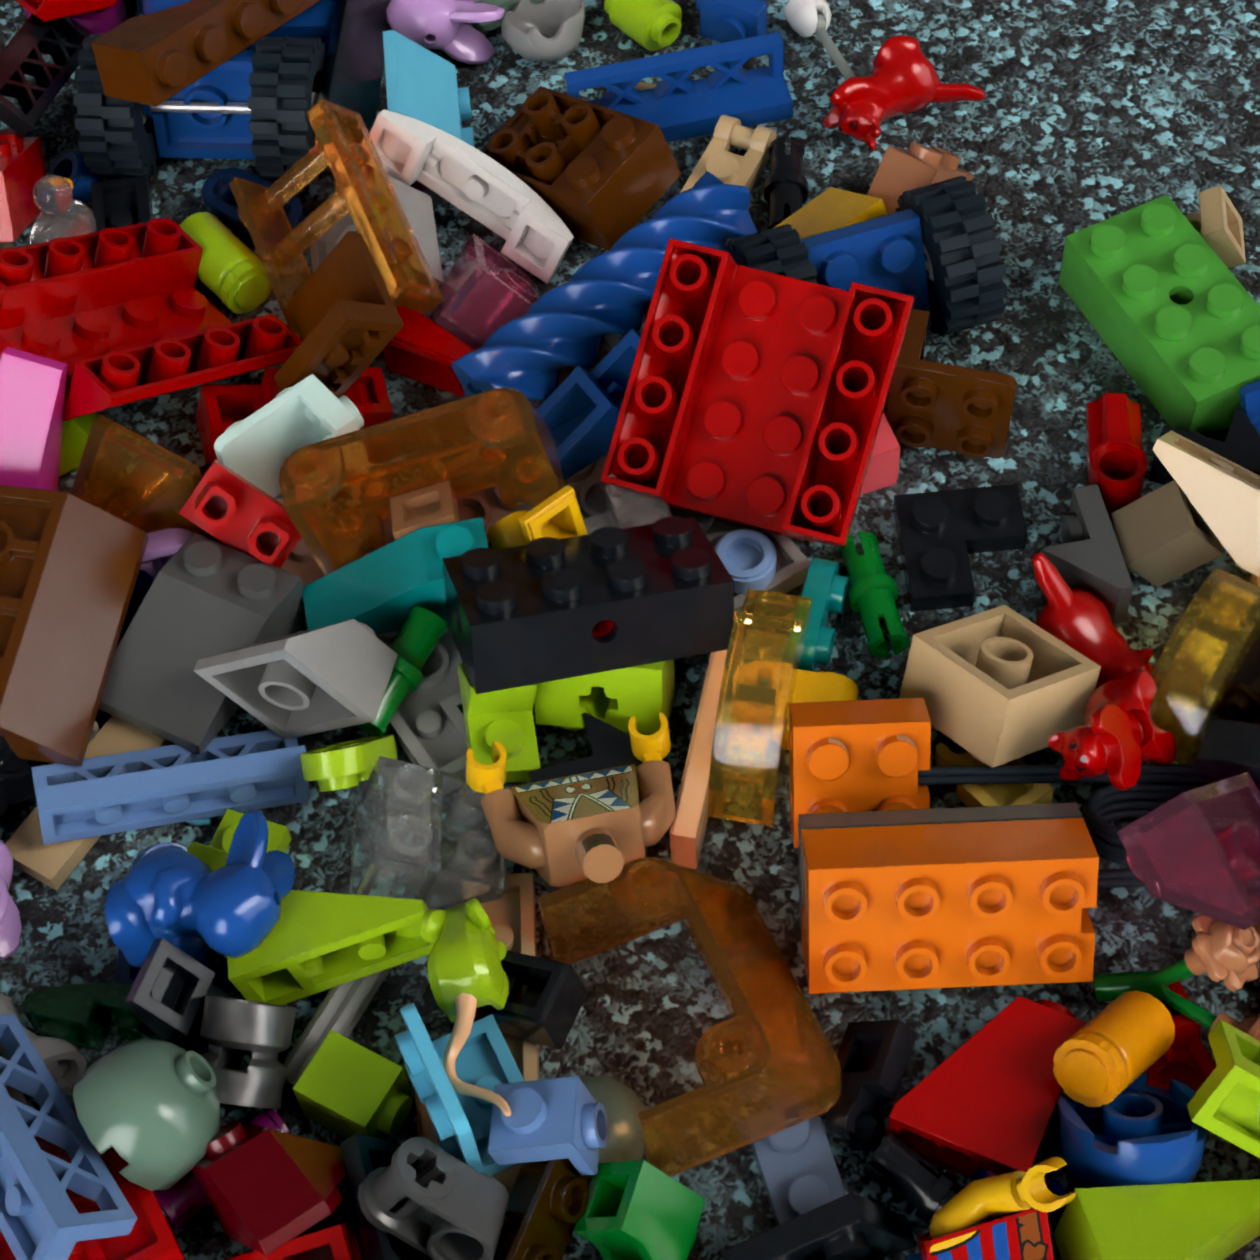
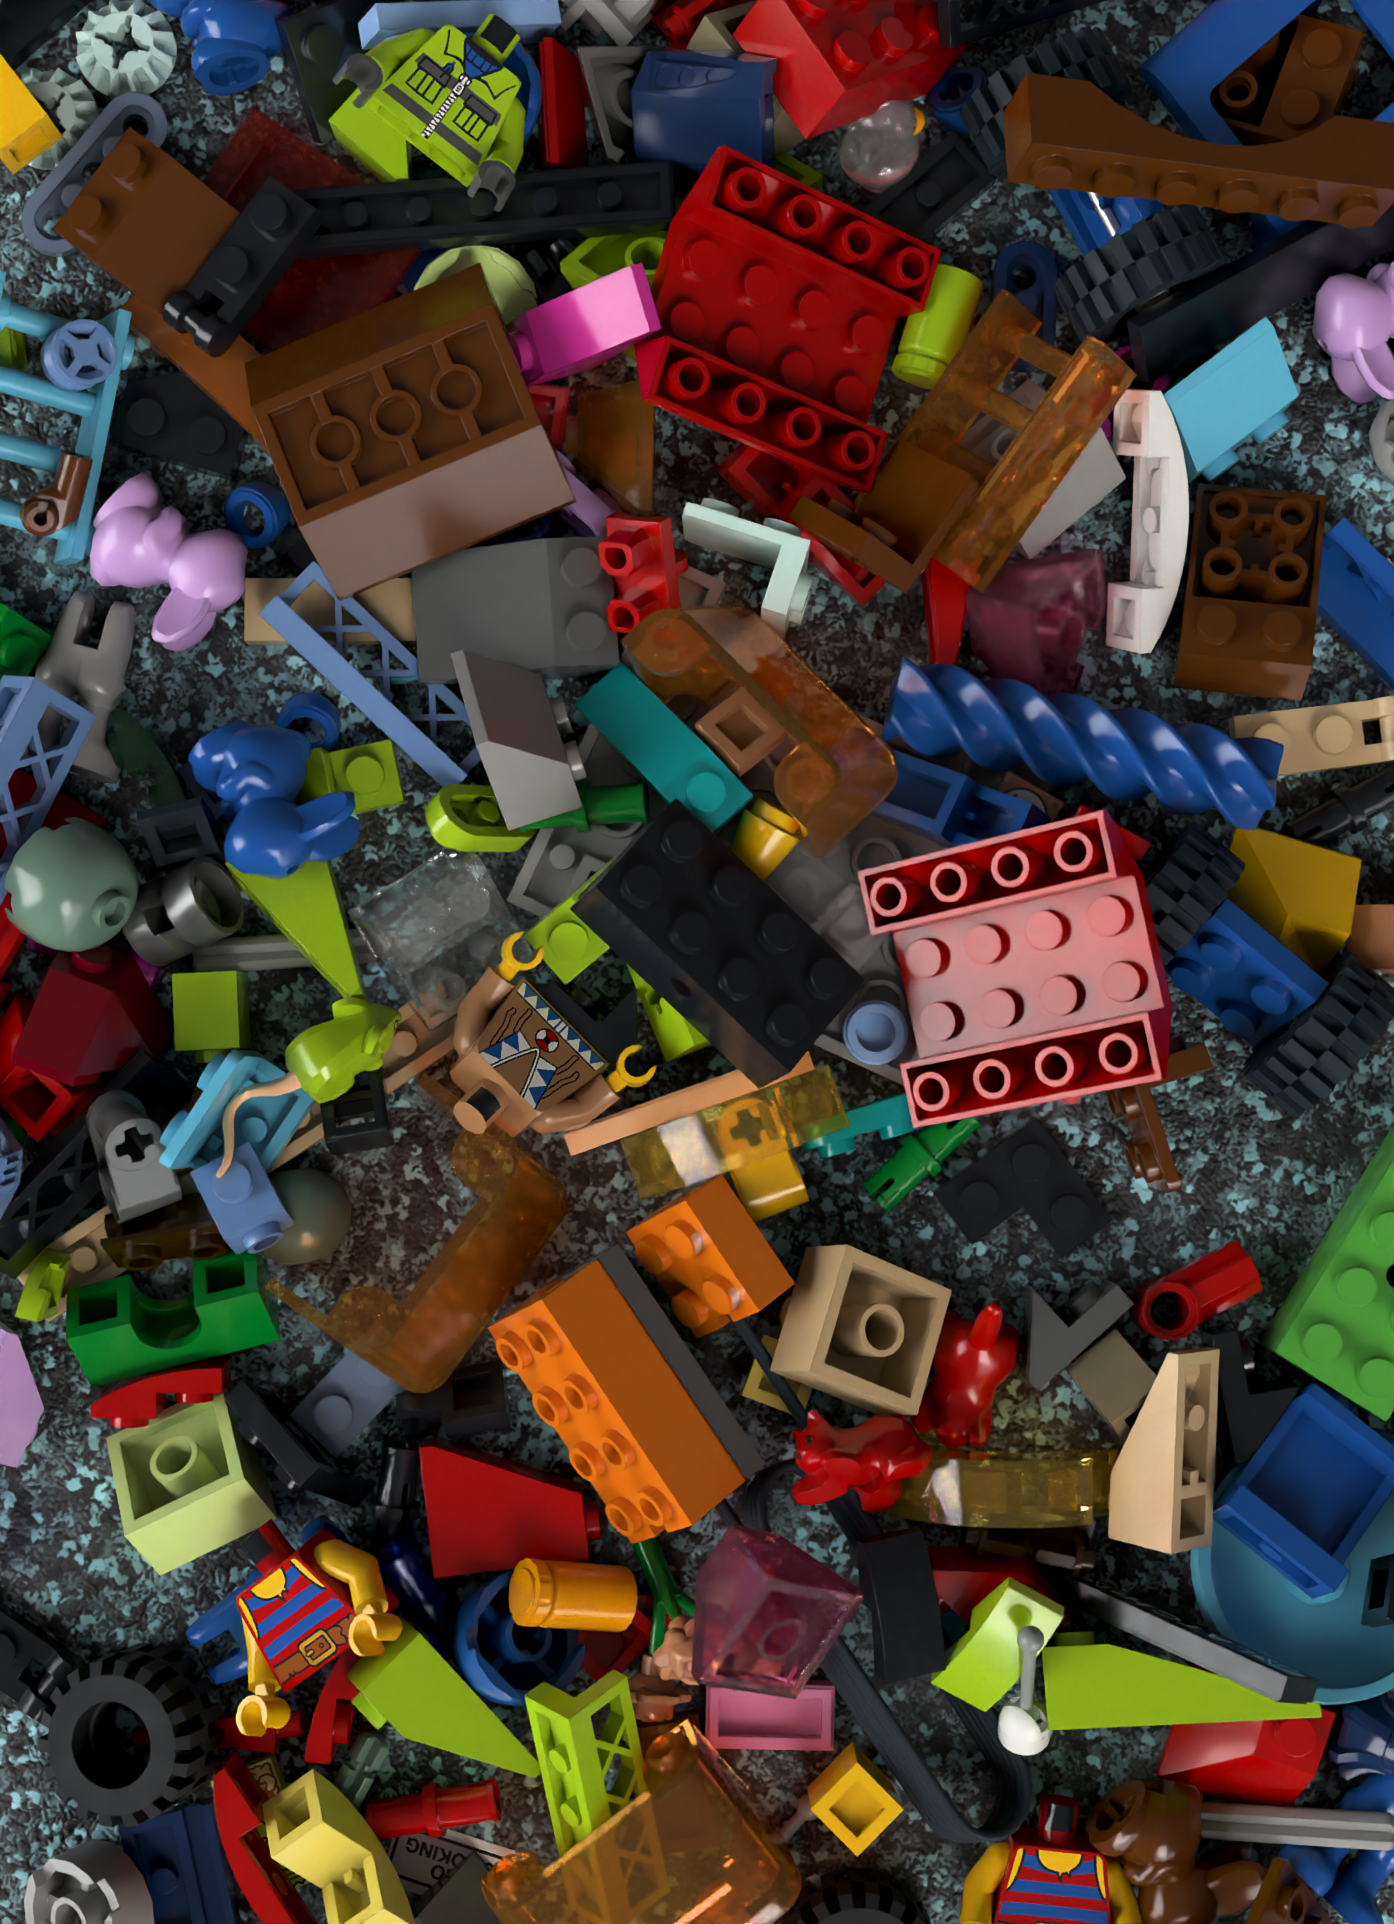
camera: 55 degrees right, 30 degrees up
(555, 517) = (781, 860): yellow slope -> none

